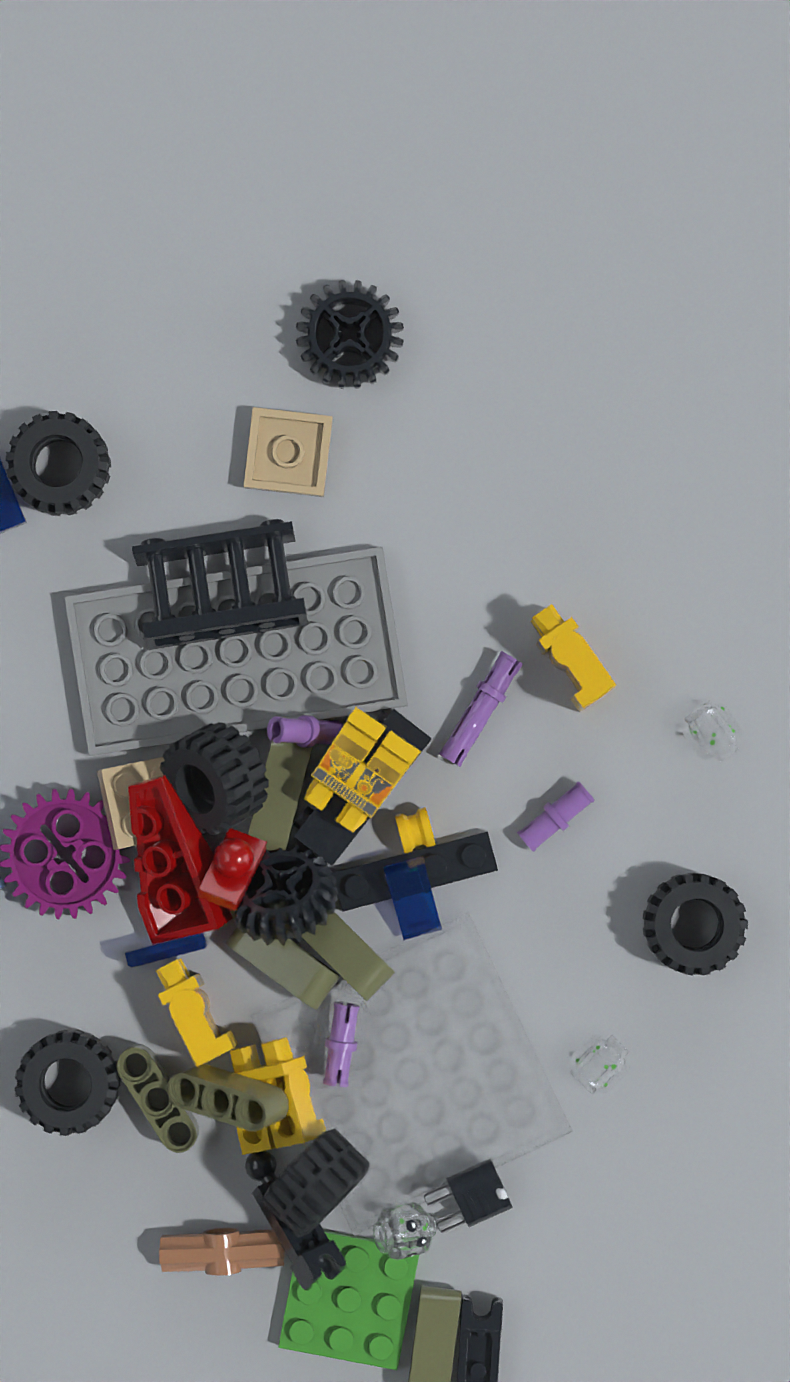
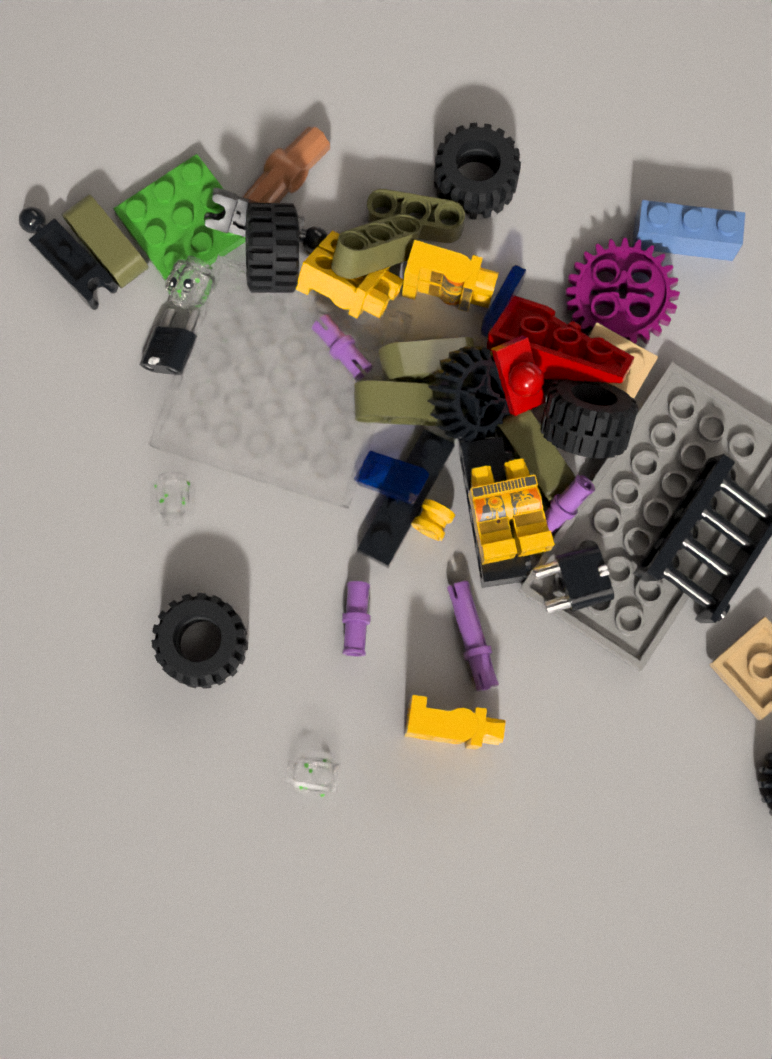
camera: 140 degrees right, 10 degrees down
(352, 662) = (582, 578): none -> black piece

